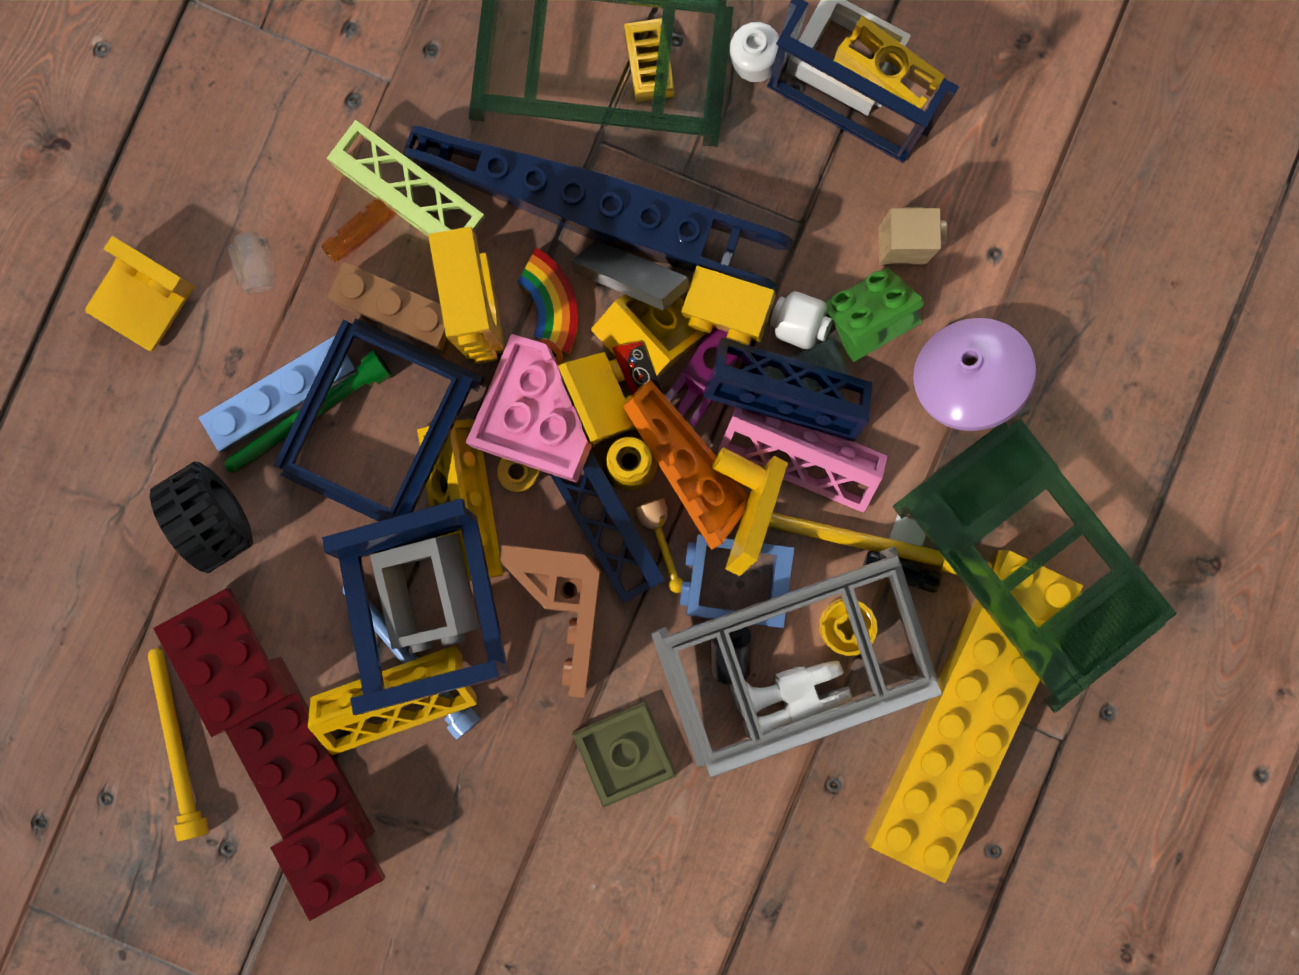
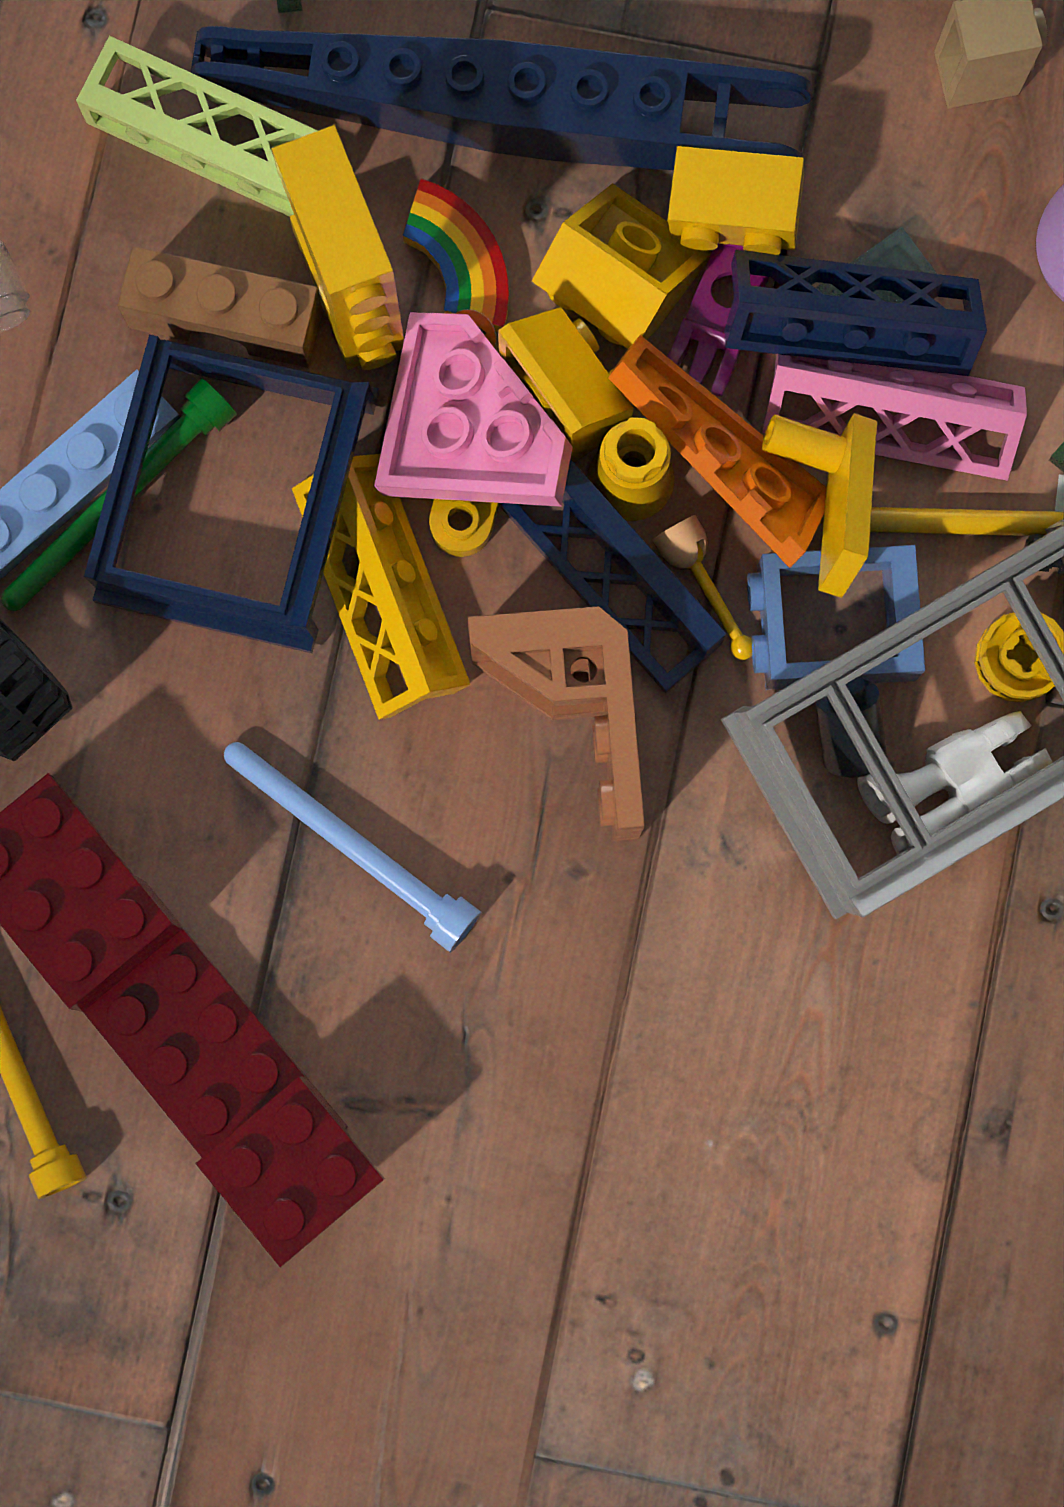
camera: 15 degrees left, 5 degrees down
(334, 710) = (327, 901): yellow fence -> none
(356, 229) = (138, 206): clear orange axle -> none
(397, 532) = (296, 640): dark blue piece -> none
(452, 586) = (404, 708): light grey window -> none
(624, 754) = (716, 923): olive tile -> none
(630, 274) = (577, 183): dark grey tile -> none
(636, 365) = (613, 318): sticker -> none
(801, 320) = (849, 207): white head -> none
(874, 312) = (958, 175): bright green bracket -> none

